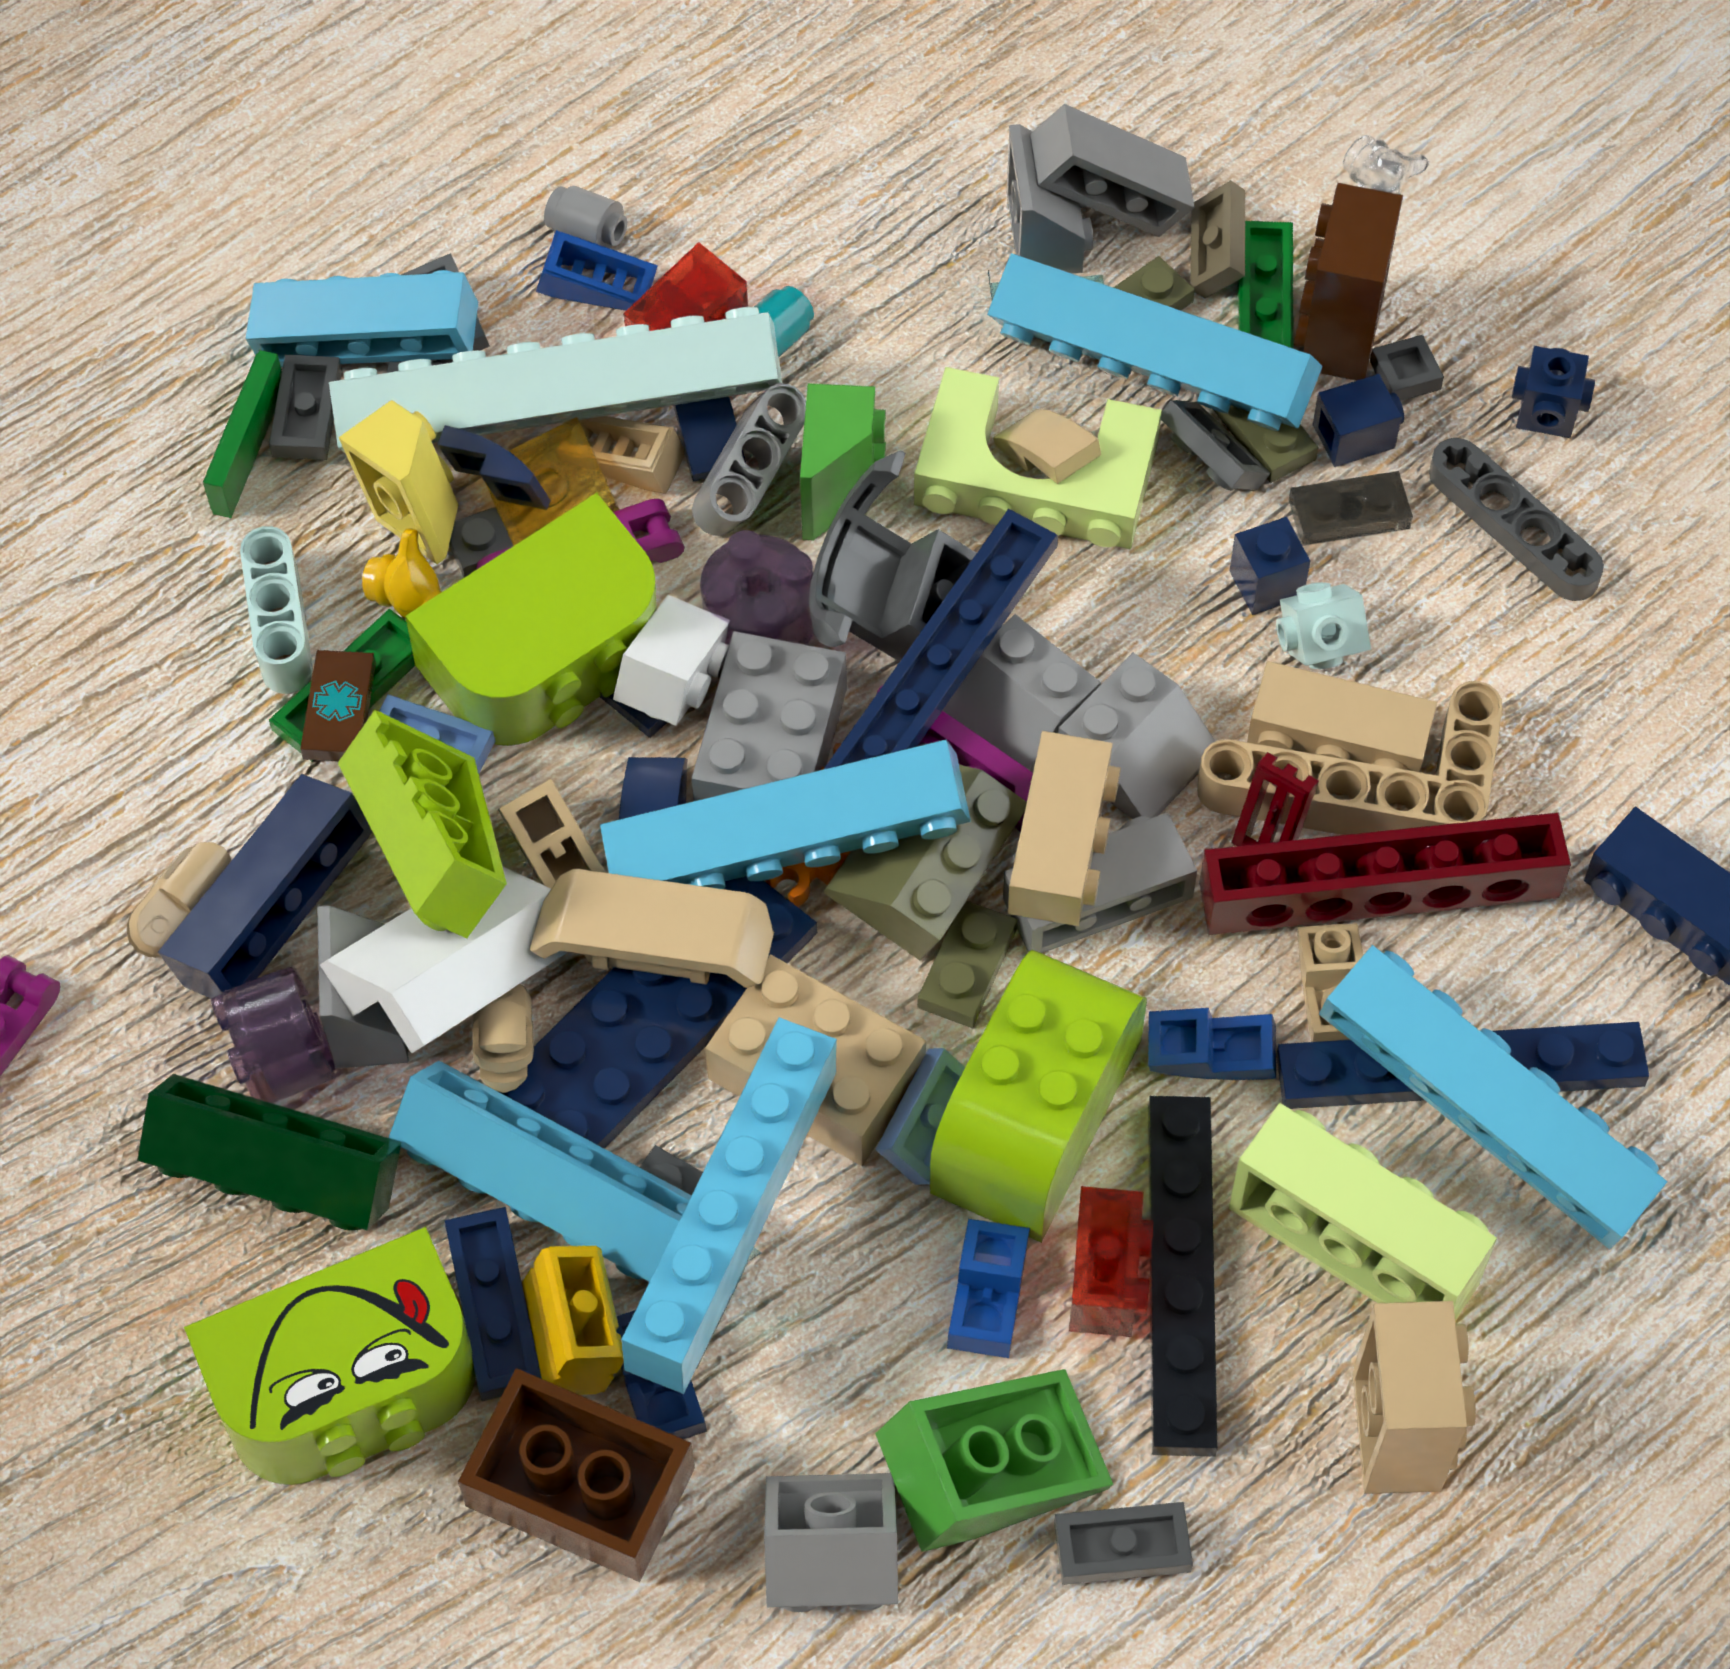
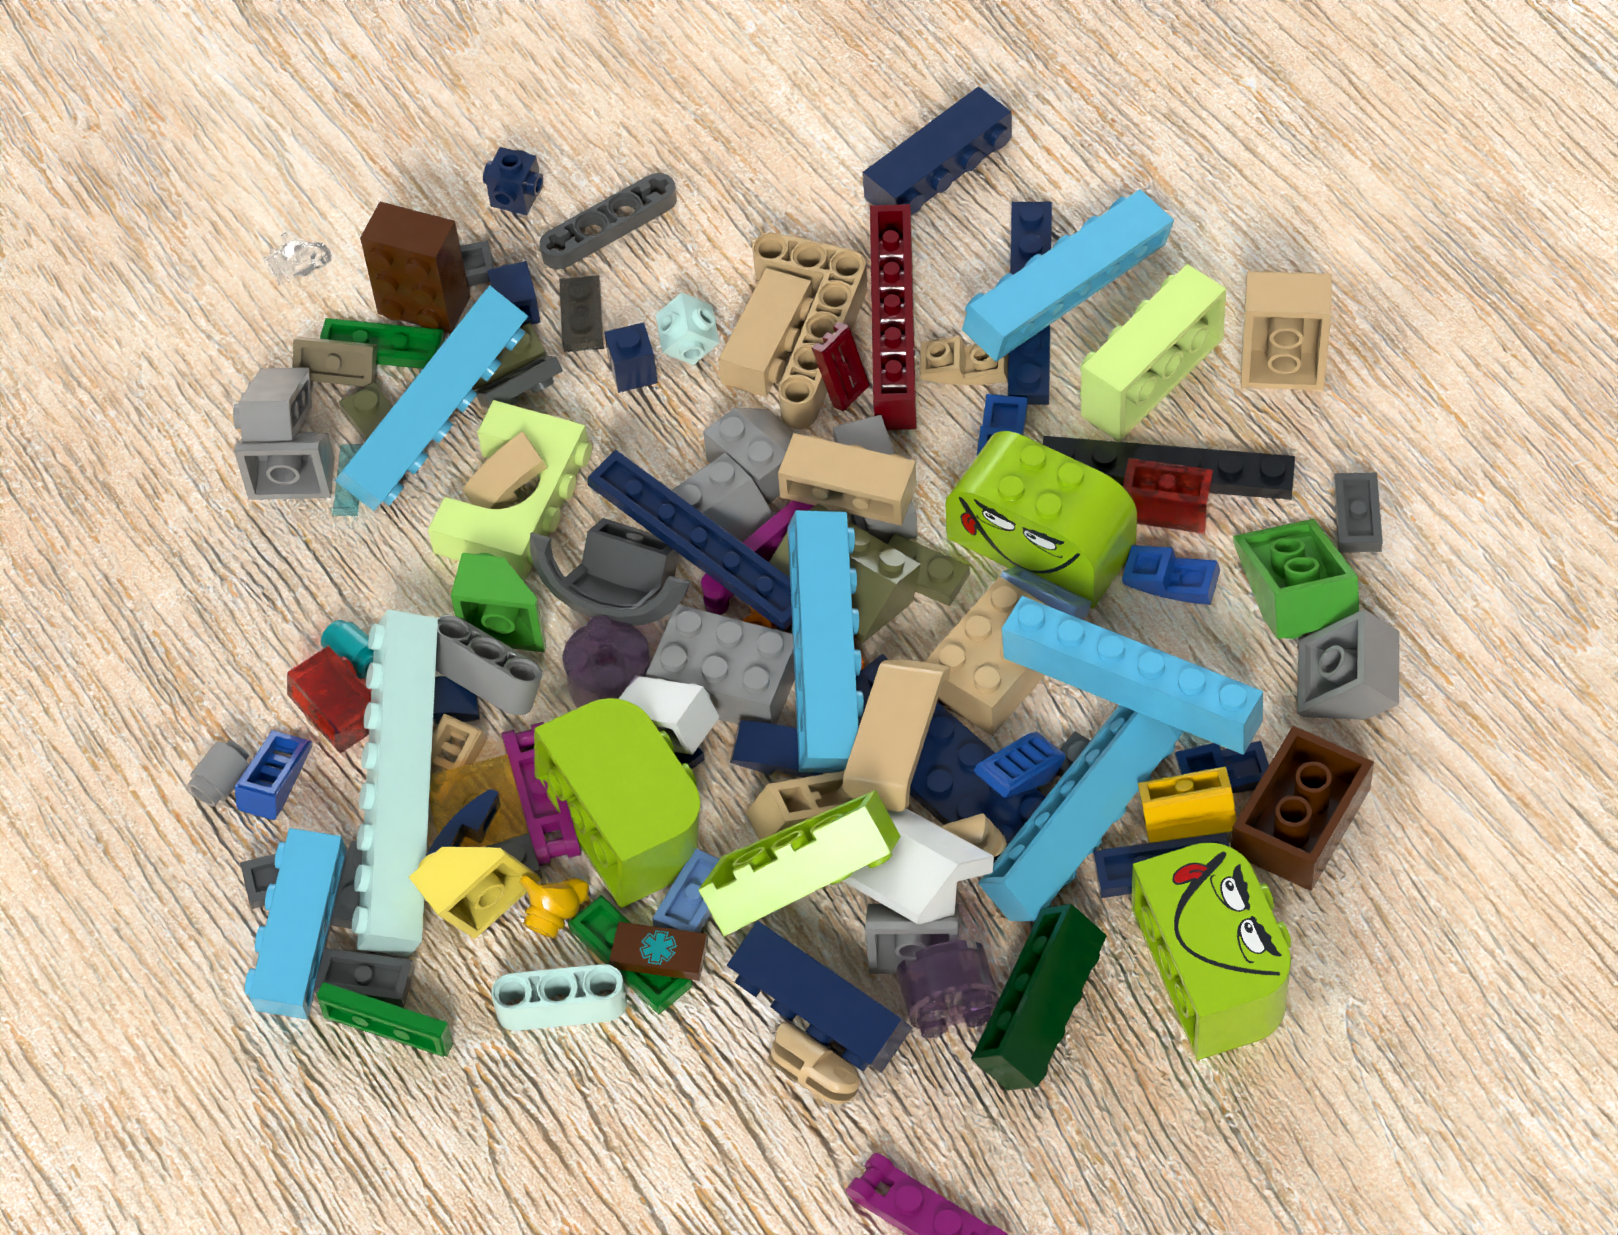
camera: 80 degrees left, 5 degrees down
(668, 1114) = (1021, 765): none -> blue slope

